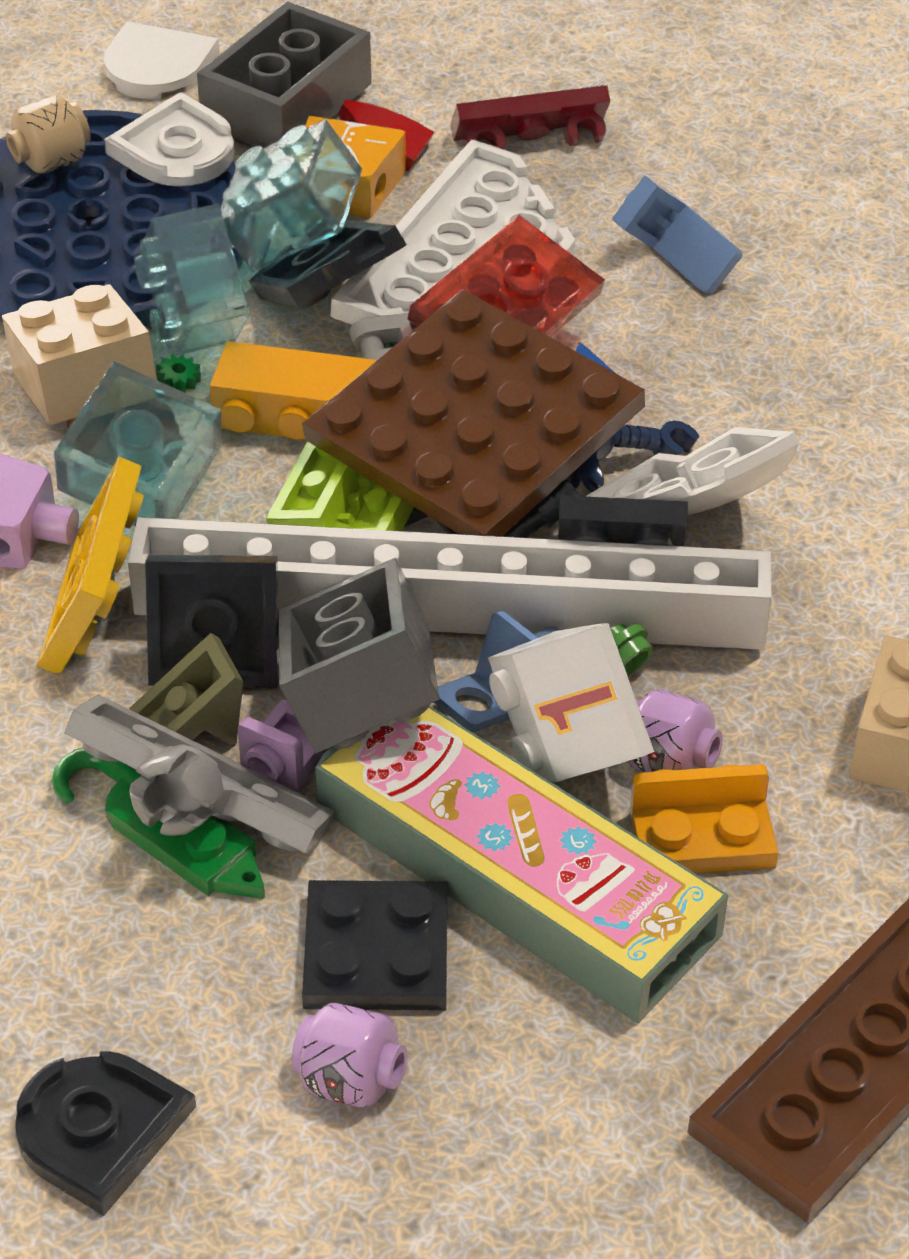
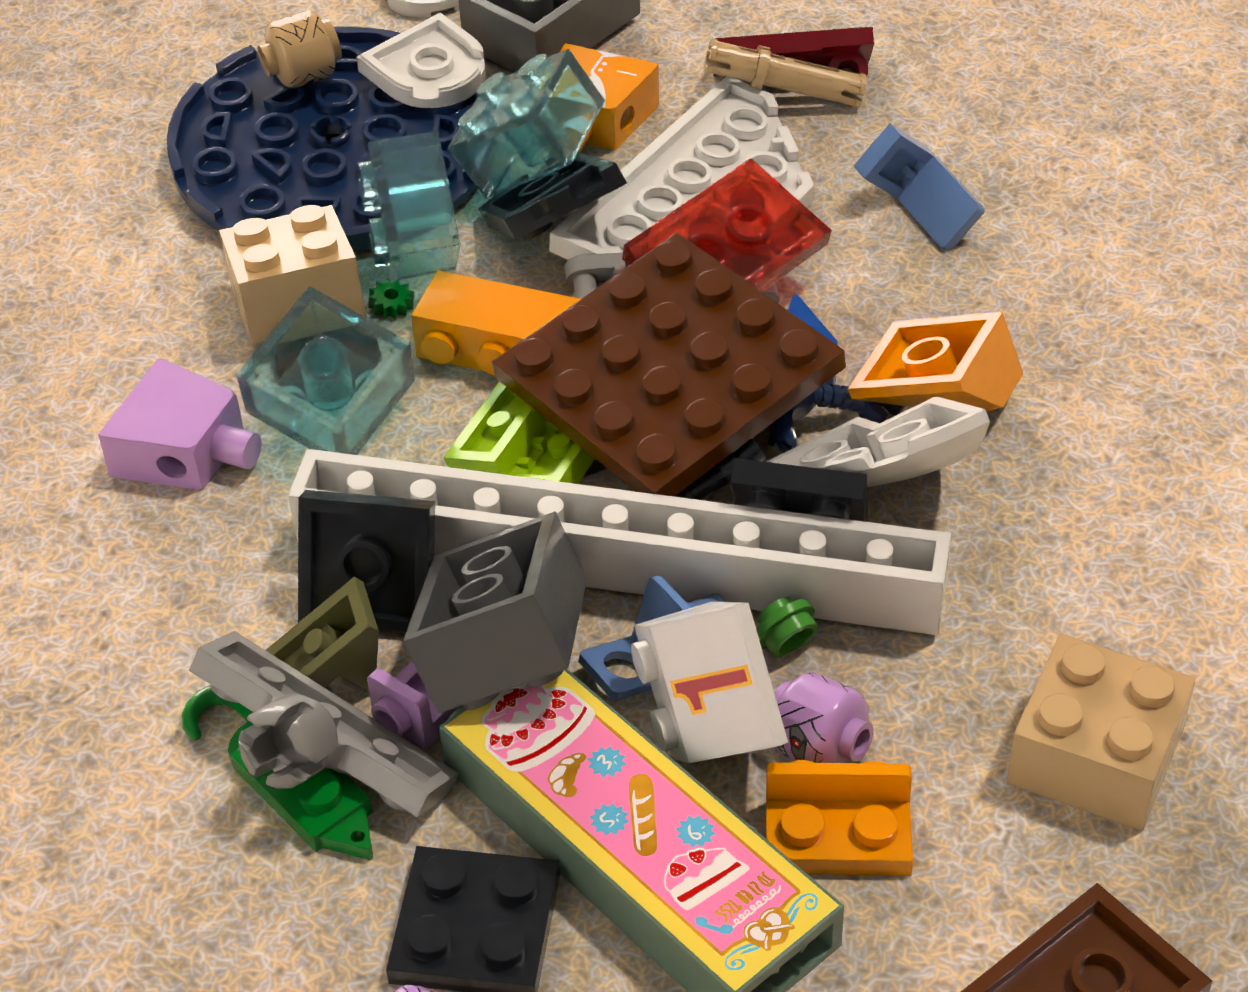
camera: 10 degrees right, 0 degrees up
(93, 556) = (252, 511): yellow plate -> none
(416, 135) = (672, 68): red slope -> none
(507, 130) = (784, 73): none -> tan pin
(727, 392) = (943, 357): none -> light orange slope

